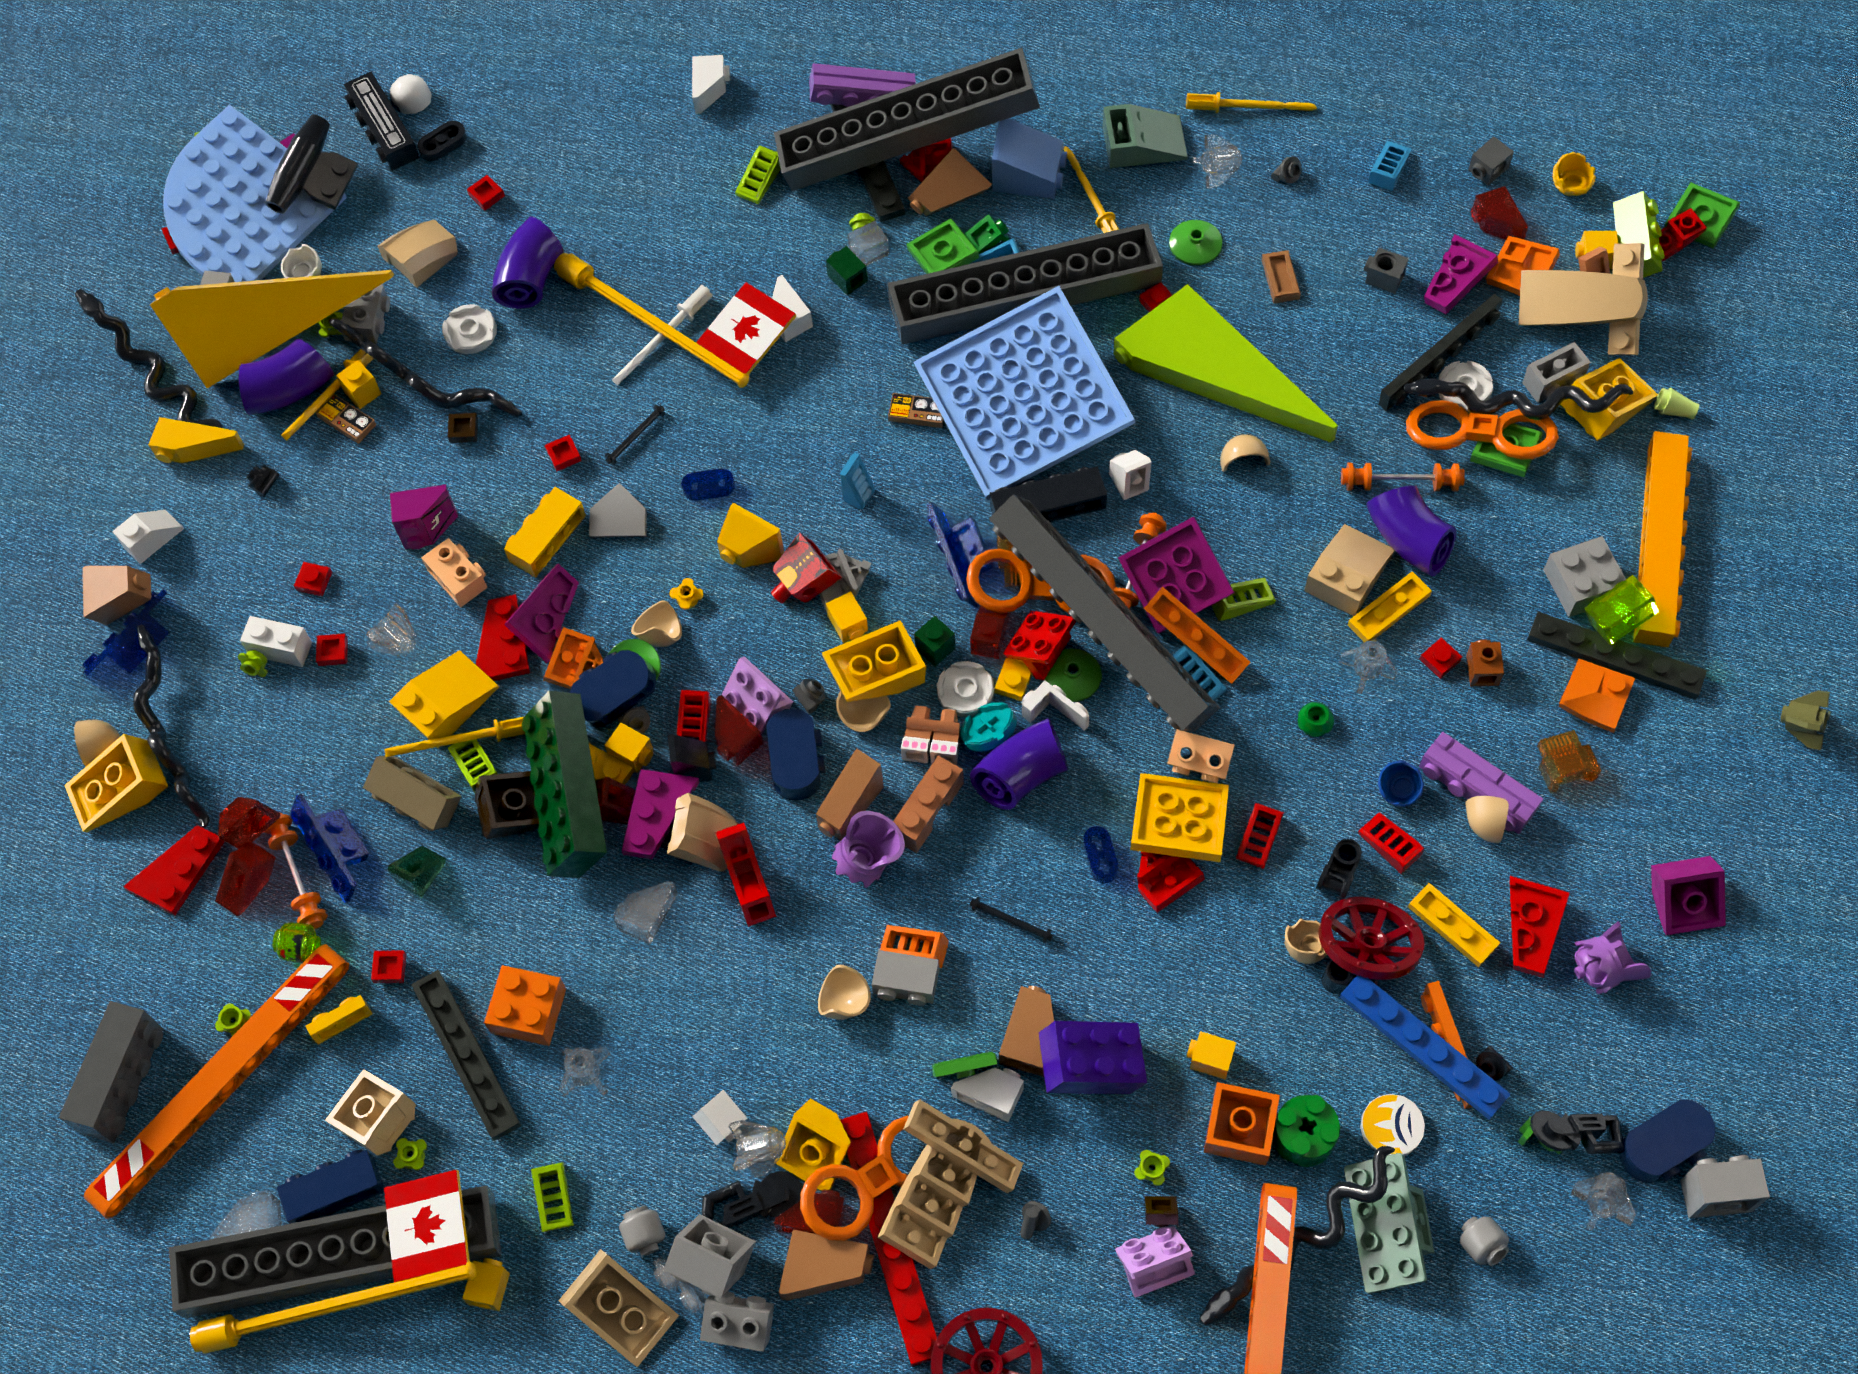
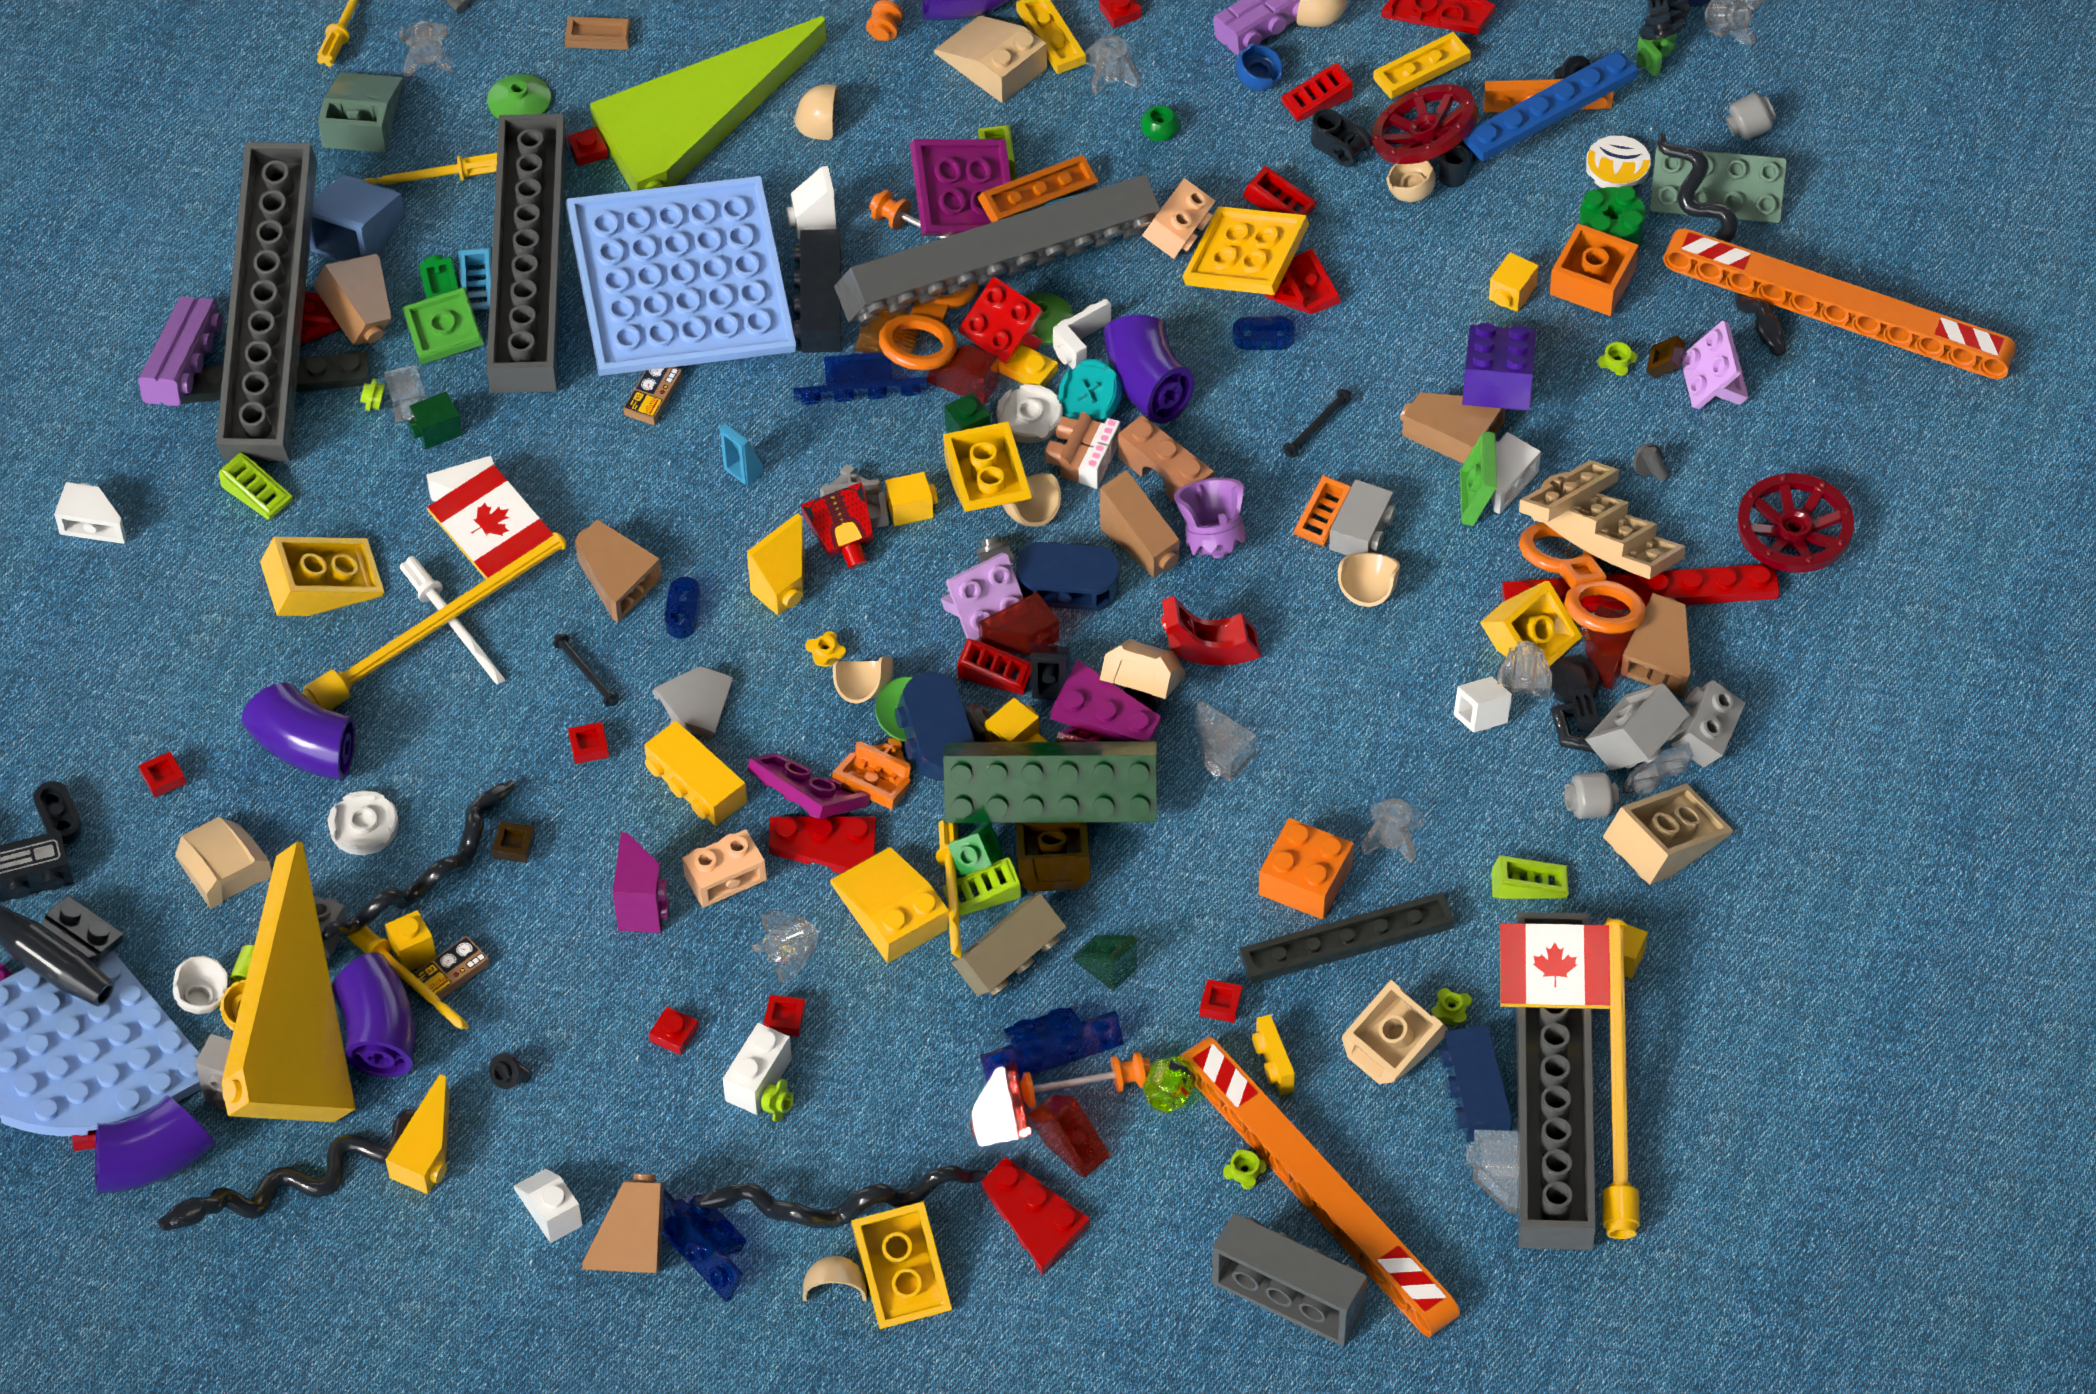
camera: 80 degrees left, 10 degrees down
(152, 263) = (147, 1147): none -> dark purple brick
(500, 749) = (976, 850): none -> green bracket
(683, 237) = (319, 574): none -> yellow slope
(729, 427) = (616, 568): none -> medium nougat slope

